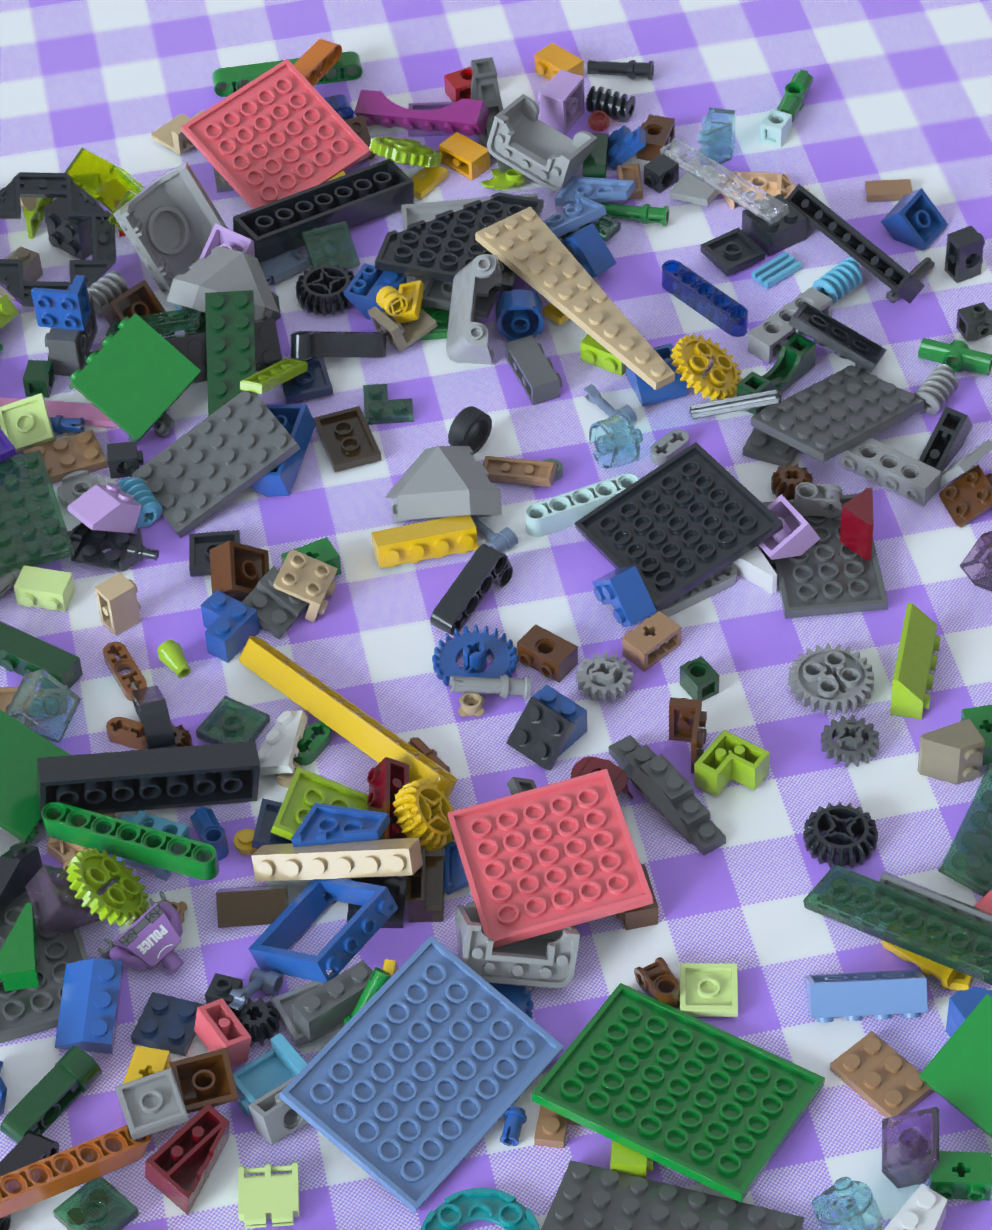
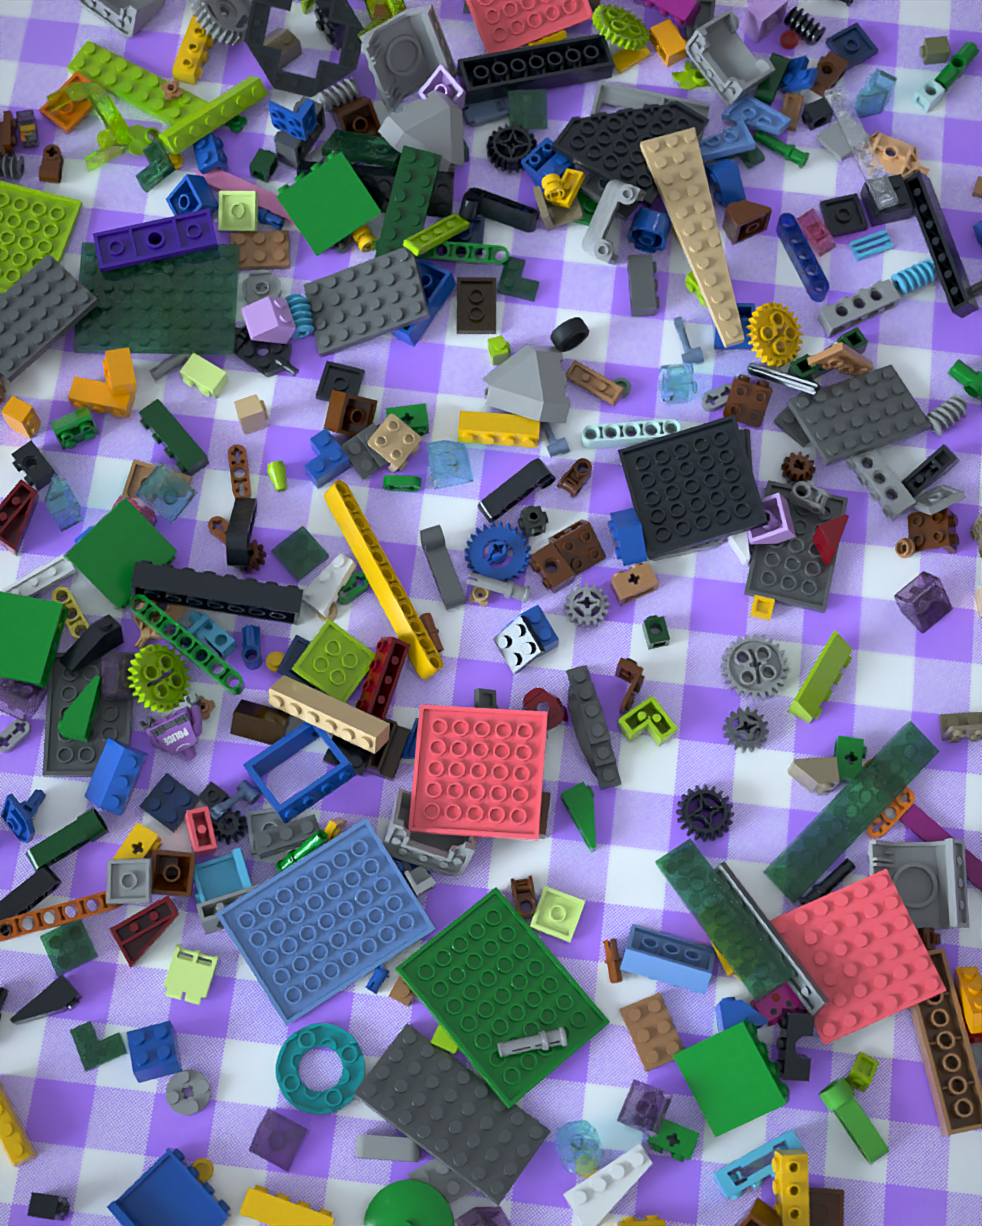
camera: 15 degrees right, 25 degrees up
(123, 459) = (302, 269): black brick -> none
(185, 411) = (364, 238): none -> yellow wheel
(320, 385) = (470, 257): none -> green beam
(329, 624) = (402, 483): none -> green beam
(339, 825) = (339, 686): blue wing -> none
(375, 591) = (448, 463): none -> clear light blue slope
(390, 468) = (498, 350): none -> lime brick
(410, 687) = (442, 567): none -> dark grey beam
(423, 814) = (401, 694): yellow gear -> none
(504, 614) = (533, 521): none -> pearl dark grey brick
(528, 1001) = (420, 881): none -> light grey panel
(536, 560) = (573, 479): none -> reddish brown piece
(573, 622) = (578, 546): none -> reddish brown bracket
(626, 277) = (745, 220): none -> reddish brown slope
(672, 105) = (852, 45): none -> dark blue plate
(688, 874) = (580, 806): none -> green slope
(708, 431) = (748, 400): none -> reddish brown bracket
(711, 268) = (816, 232): none -> clear pink brick
(751, 1111) = (541, 1040): none -> light grey pin
(764, 89) = (935, 50): none -> olive brick
(793, 364) = (842, 358): none -> medium nougat wing
(799, 1016) = (613, 961): none -> dark orange axle
(813, 622) = (762, 607): none -> yellow plate
(837, 336) = (888, 339): black plate -> none
(944, 522) = (900, 548): none -> medium nougat plate

